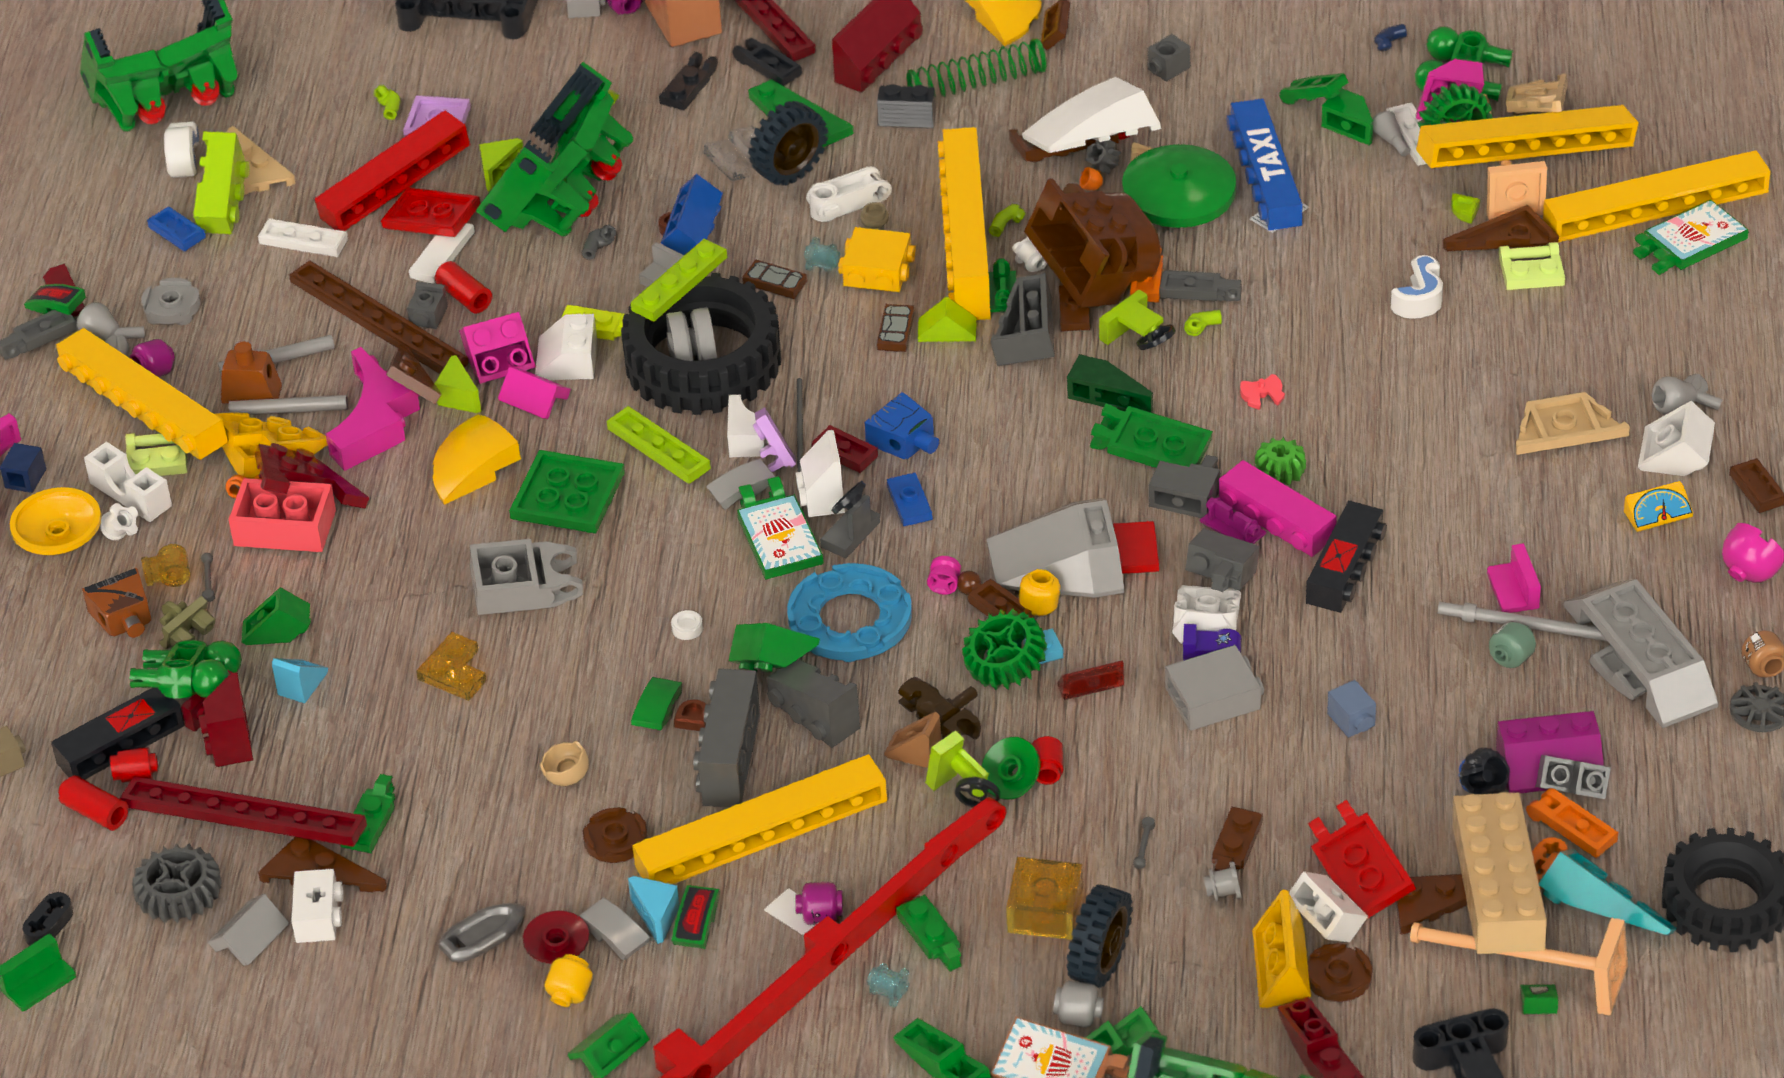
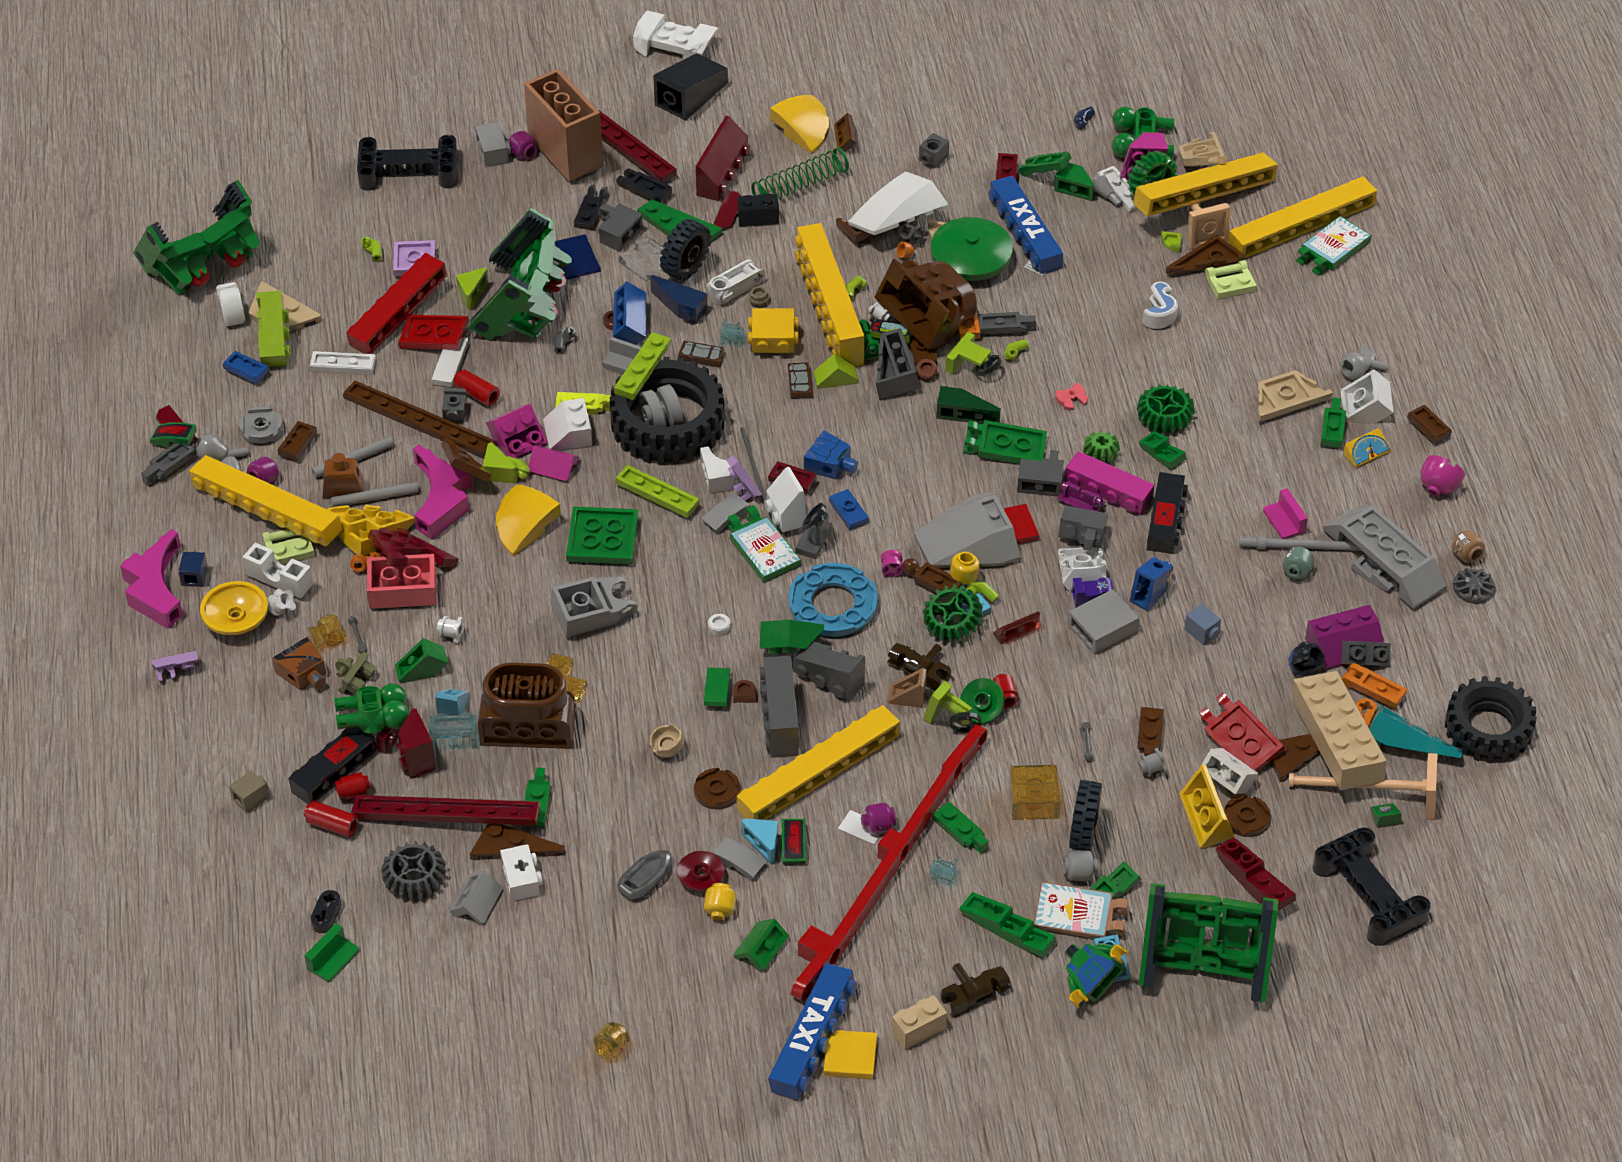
camera: 15 degrees left, 5 degrees up
(210, 326) = (297, 440): none -> reddish brown plate
(288, 708) = (453, 728): none -> clear light blue window
(329, 583) = (450, 628): none -> white brick
(387, 693) = (526, 707): none -> reddish brown brick
(488, 391) = (521, 466): none -> lime arm
(652, 141) = (582, 256): none -> clear blue piece
(717, 108) = (619, 226): none -> dark grey hinge
(768, 208) = (681, 300): none -> dark blue slope
(866, 109) = (727, 211): none -> dark red piece
(1023, 268) = (881, 326): none -> tile
(1060, 625) = (984, 589): none -> lime arm
(1071, 333) = (926, 369): none -> copper tile
(1263, 85) = (1006, 165): none -> dark red plate
(1293, 643) = (1151, 576): none -> blue torso
(1365, 474) = (1160, 449): none -> green slope
(1386, 421) = (1165, 409): none -> green gear
(1618, 470) = (1333, 425): none -> green hinge

